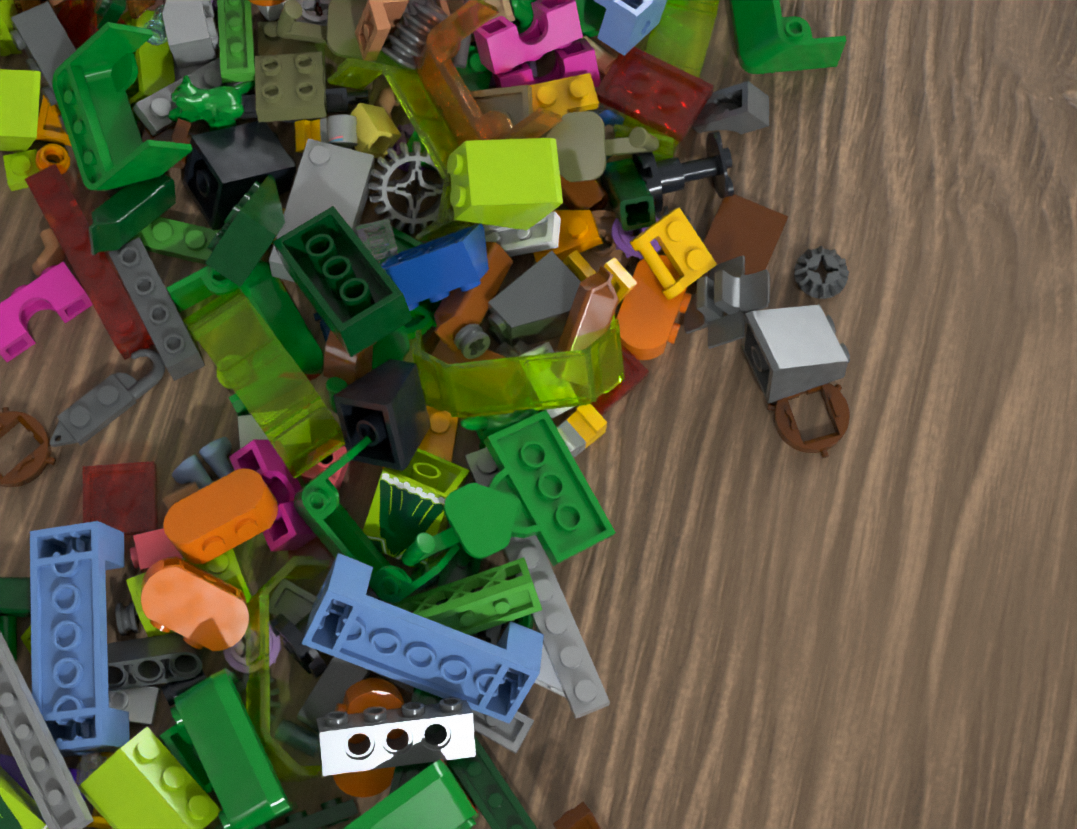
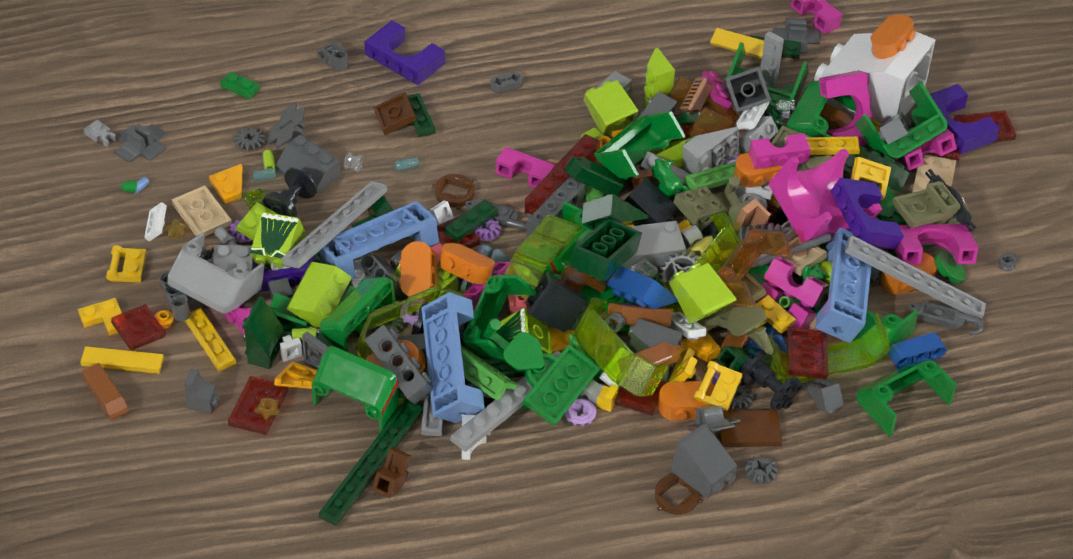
camera: 65 degrees right, 25 degrees down
(57, 497) = (442, 212): none -> white tile
(108, 457) = (471, 220): none -> dark green plate
(140, 448) = (491, 234): none -> medium lavender gear
(547, 66) = (787, 302): none -> bright green piece
(609, 479) = (588, 415): none -> lavender gear

